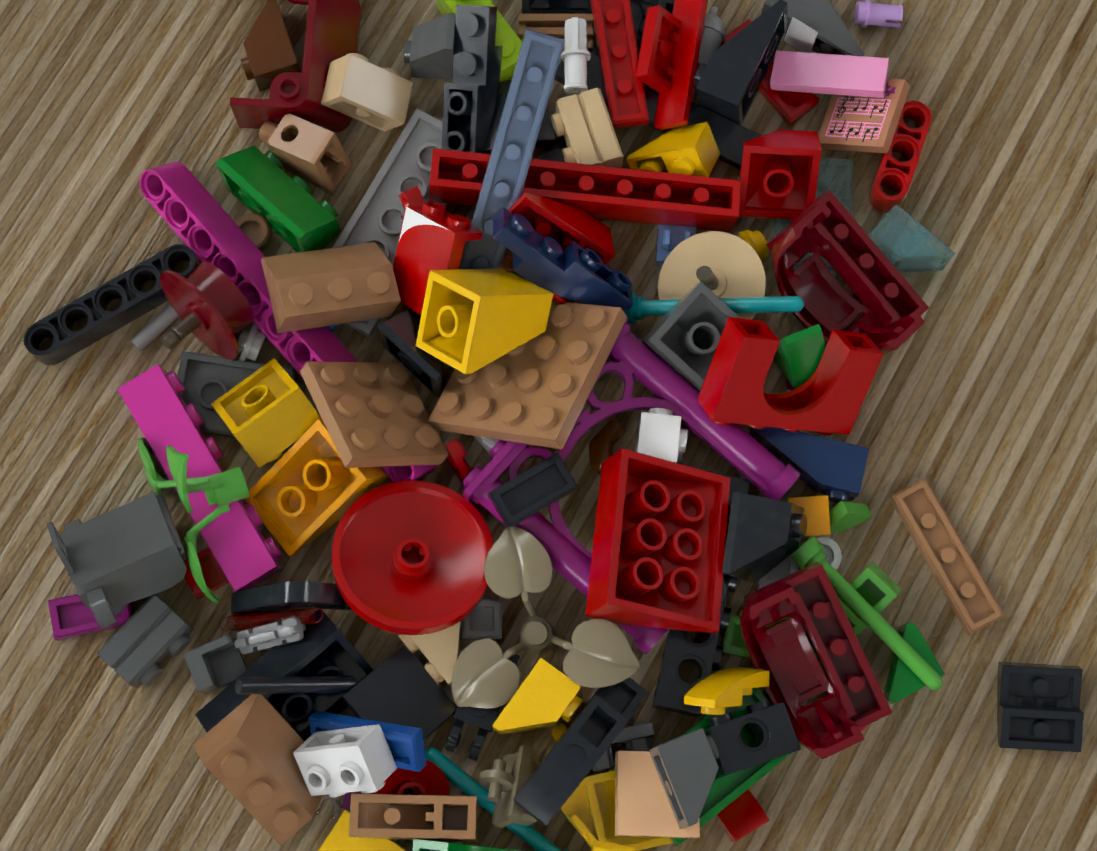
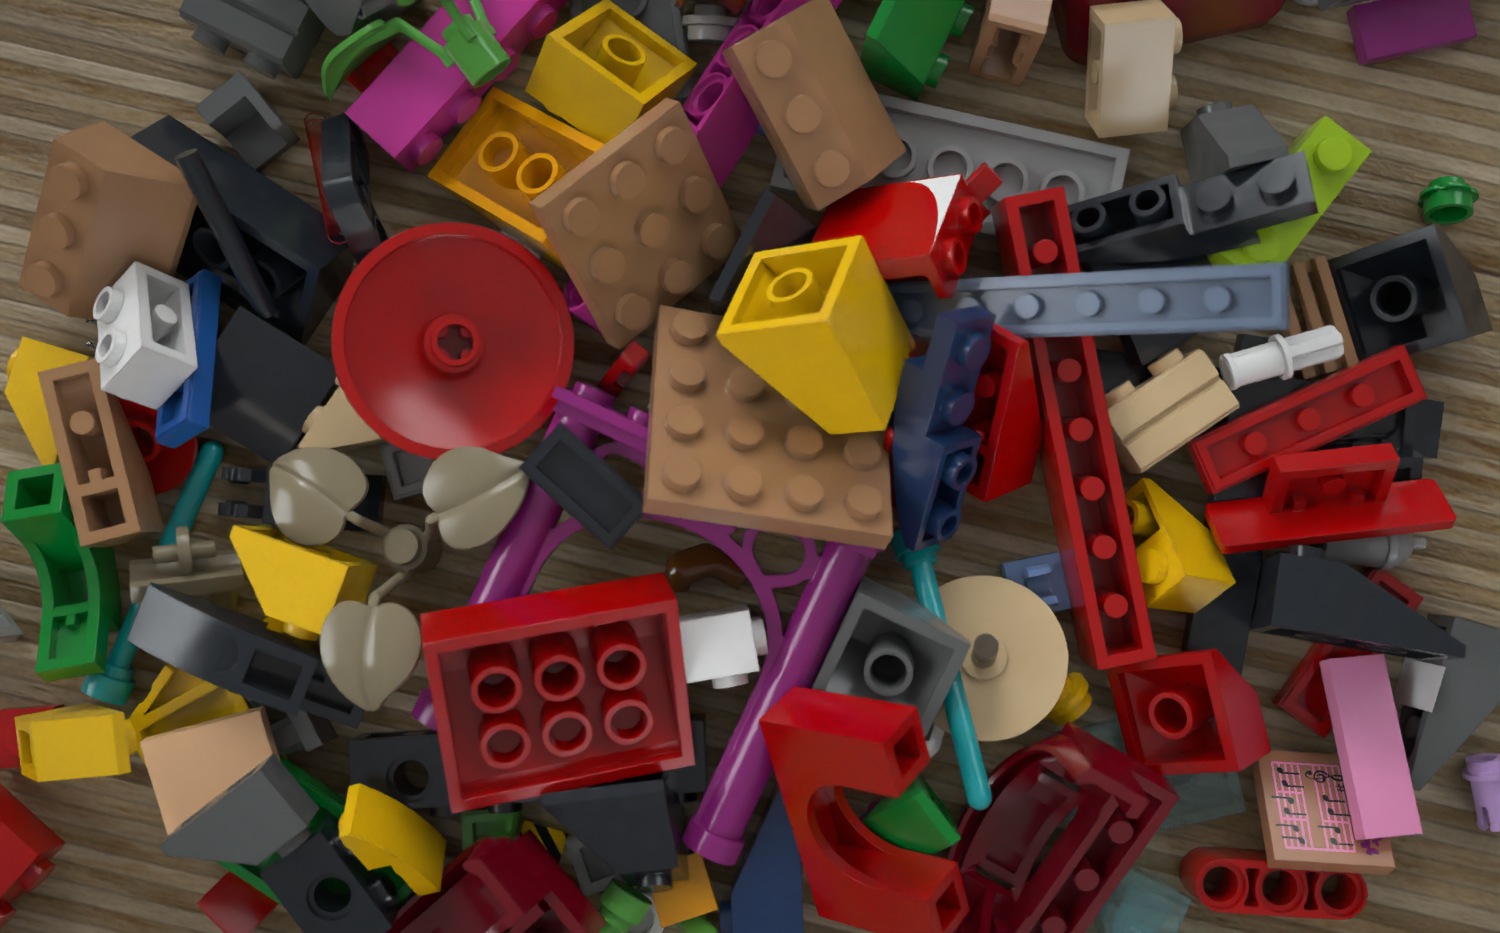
camera: 75 degrees right, 10 degrees up
(270, 635) = (300, 181): light grey axle -> none

